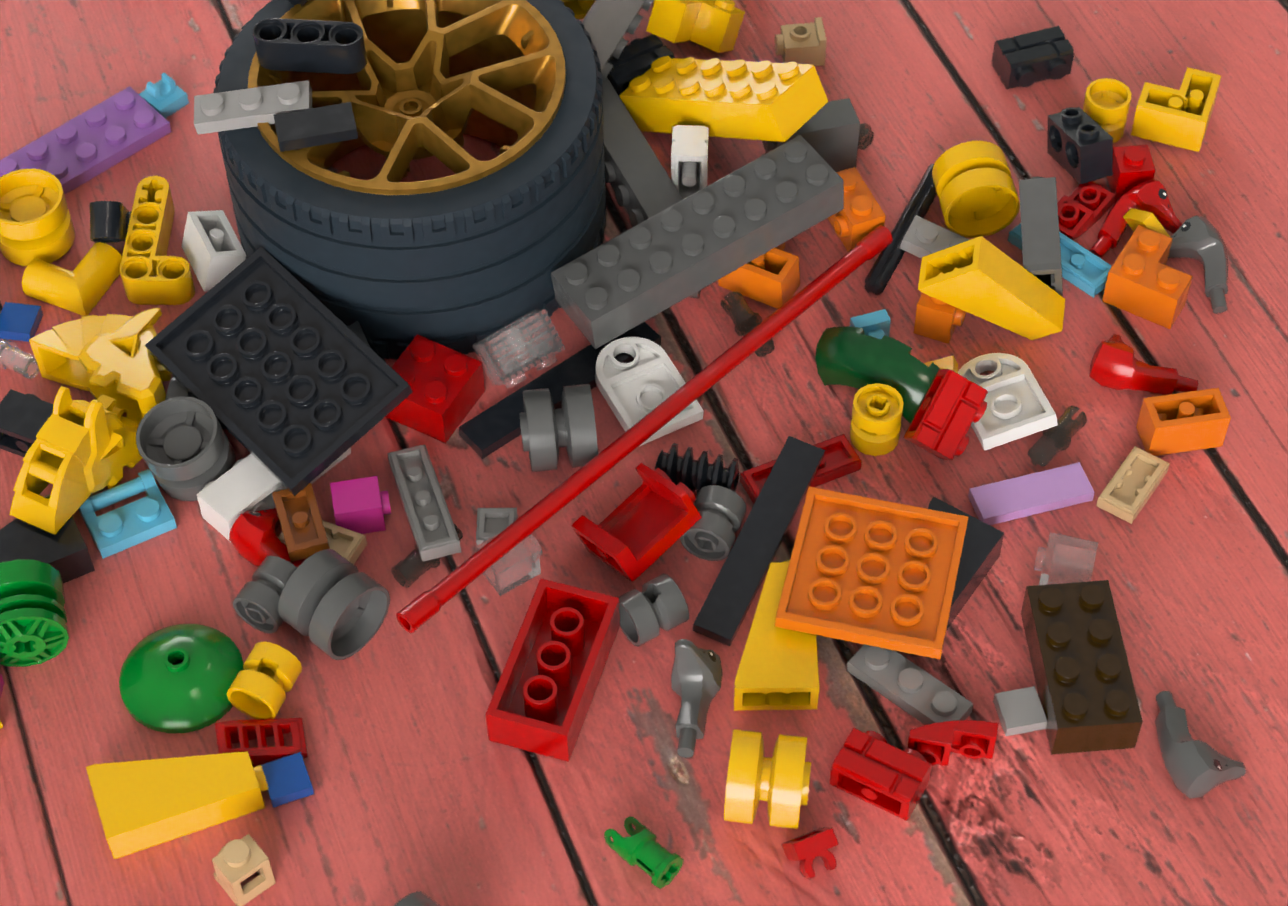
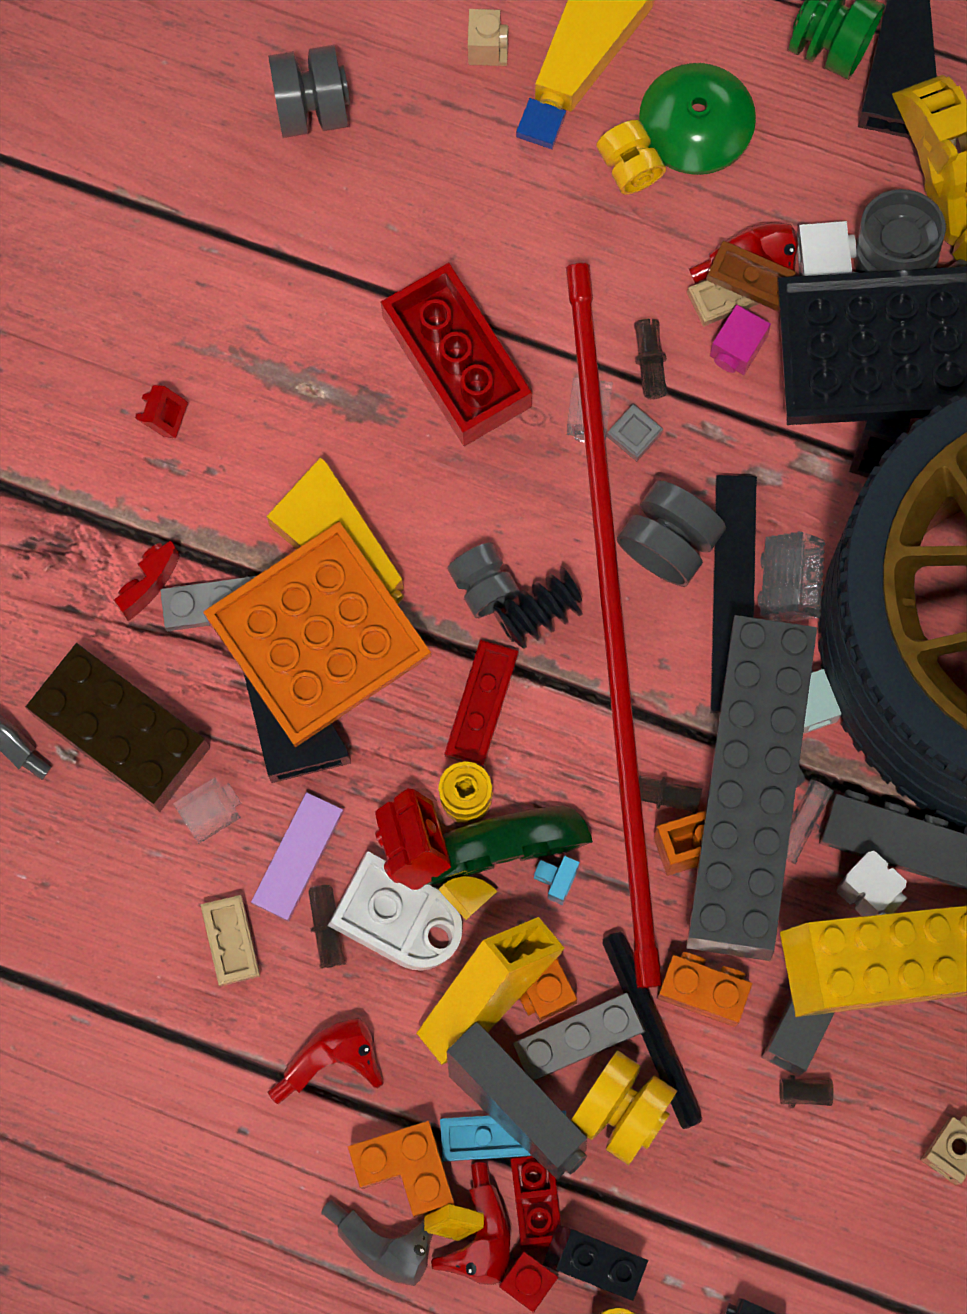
camera: 135 degrees right, 25 degrees up
(131, 522) = (880, 168): medium azure plate -> none
(245, 730) = (602, 97): red slope -> none
(260, 597) = (706, 212): dark grey wheel -> none
(333, 604) = (660, 241): dark grey wheel -> none
(424, 503) = (698, 387): light grey tile -> none
(442, 386) = (810, 480): red brick -> none
(641, 385) = (665, 644): white plate -> none
(641, 524) = (525, 513): red panel -> none
(645, 852) = (257, 303): green piece -> none
(654, 608) = (448, 465): dark grey wheel -> none
(696, 680) = (361, 452): dark grey animal -> none
(758, 541) = (441, 607): black tile -> none
(777, 779) = (220, 420): yellow wheel -> none
(880, 773) = (171, 509): red brick -> none
(1020, 711) = (132, 659): light grey tile -> none
(1183, 422) = (240, 1029): orange brick -> none

